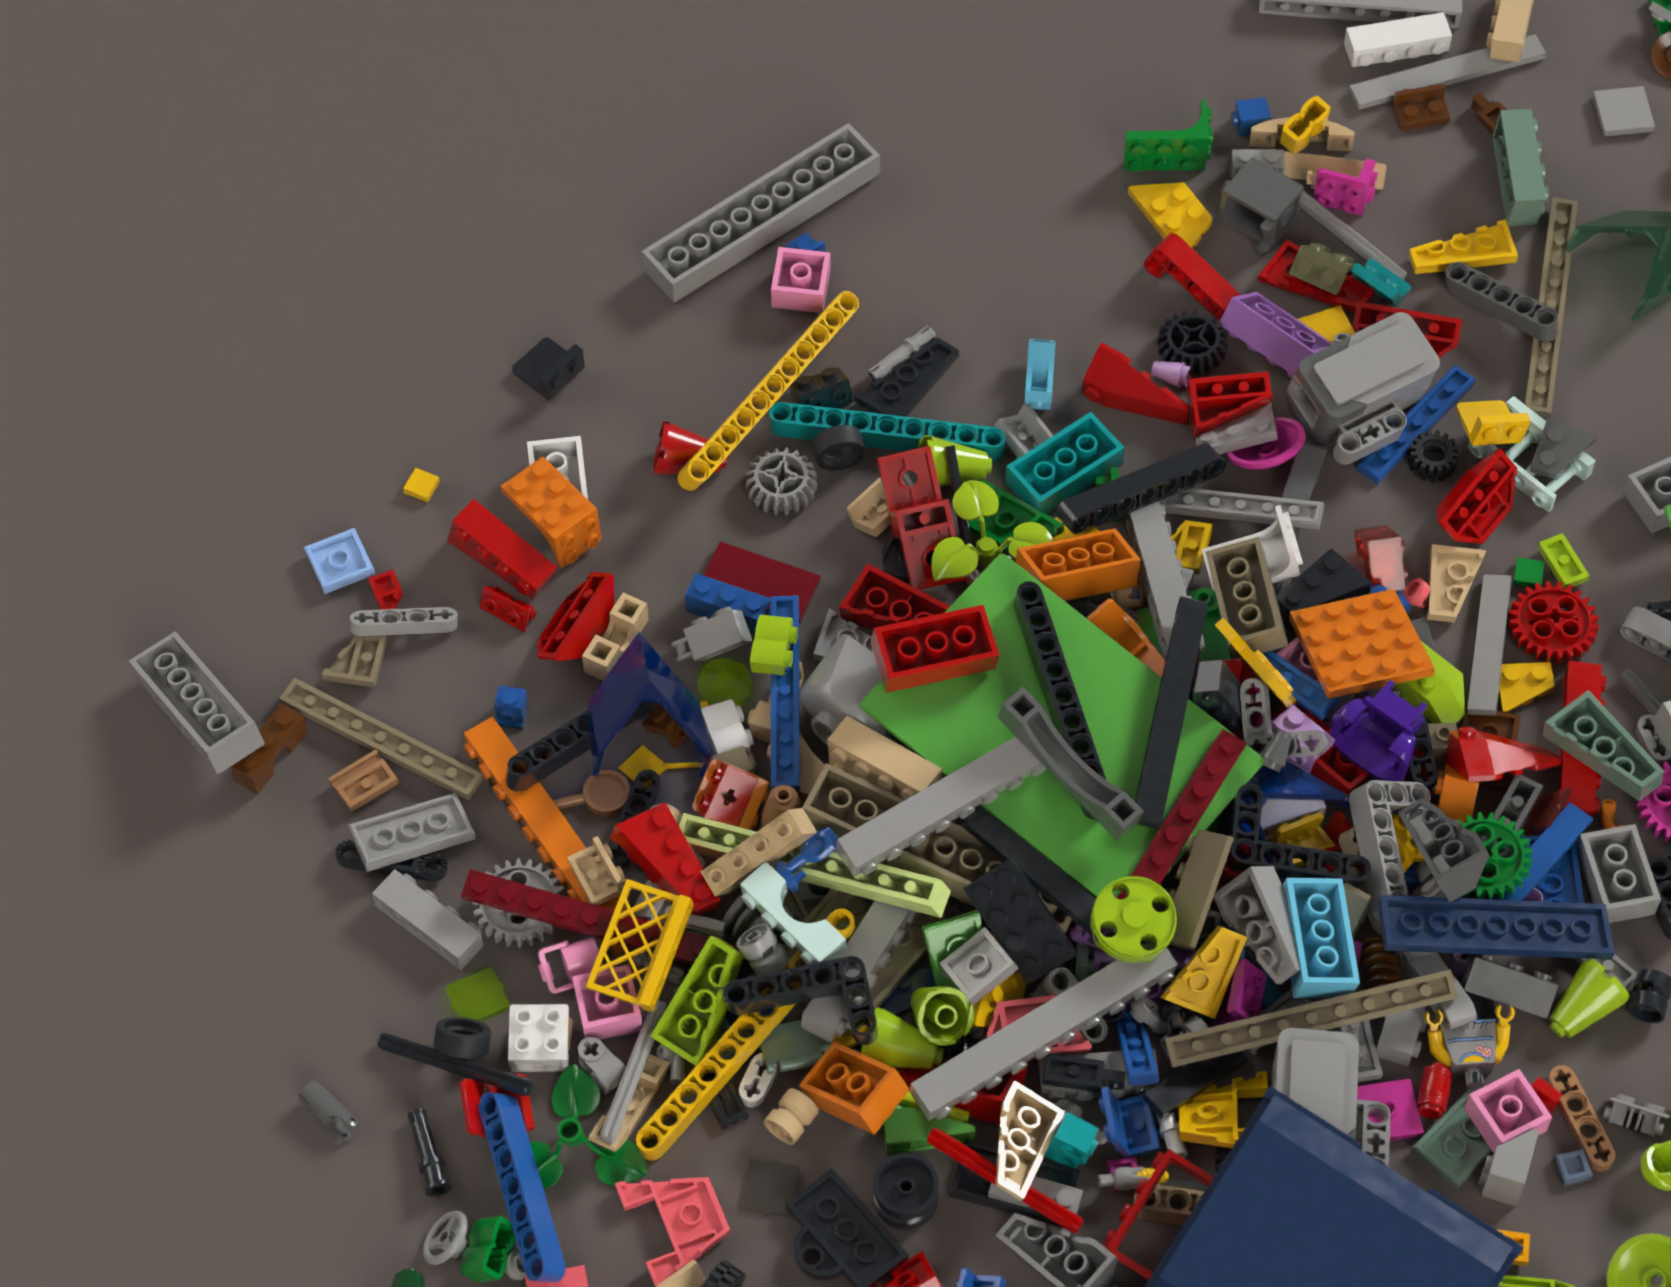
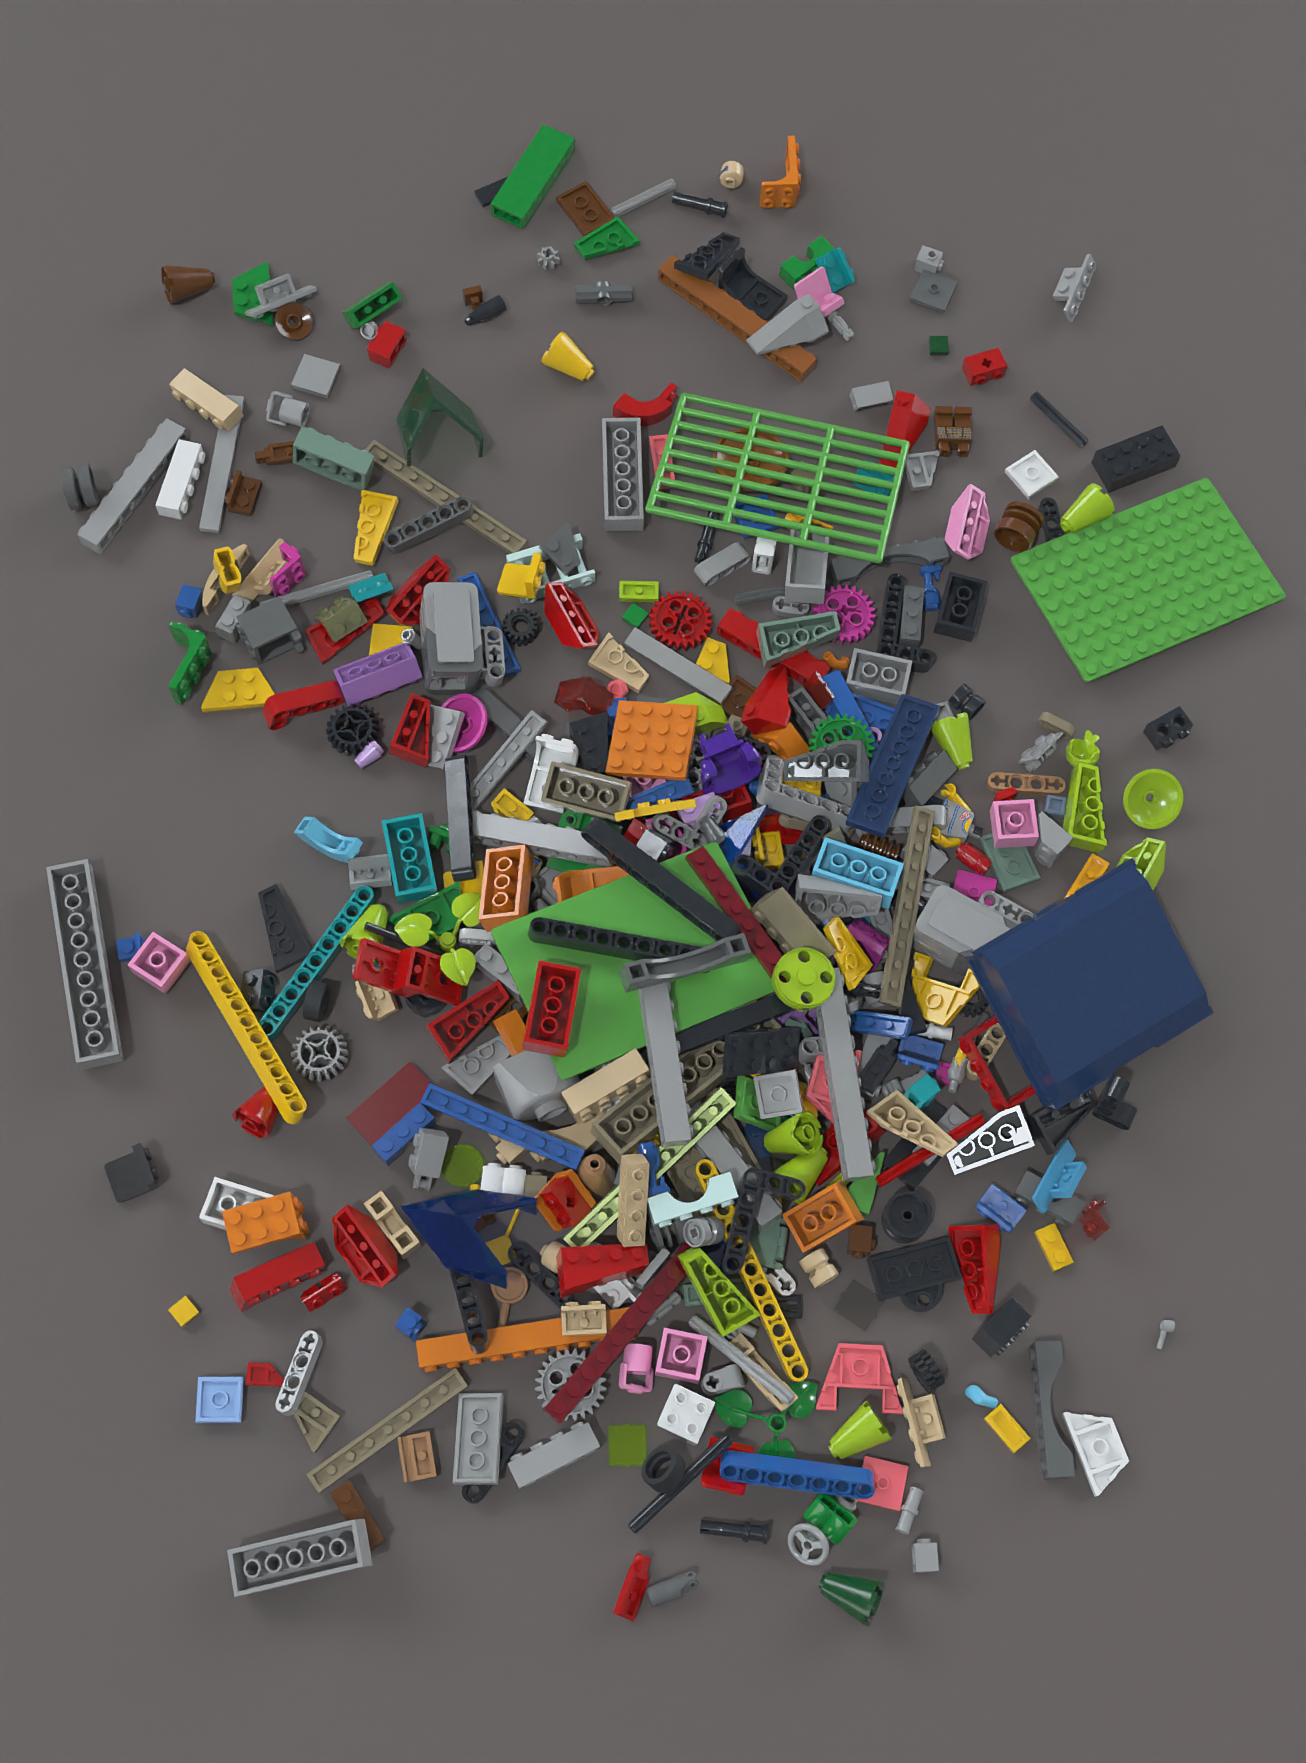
camera: 70 degrees left, 10 degrees up
(307, 1067) = (633, 1588): none -> red hinge
(609, 1244) = (859, 1433): none -> lime cone
(664, 952) = (672, 1299): yellow fence -> none
(772, 645) = (466, 1118): lime brick -> none
(849, 1152) = (860, 1241): none -> reddish brown brick
(902, 353) = (255, 914): light grey pin -> none
(1121, 387) = (360, 794): red wedge -> none
(1556, 101) = (290, 412): none -> light grey piece
(1578, 1199) = (1084, 809): none -> lime wedge

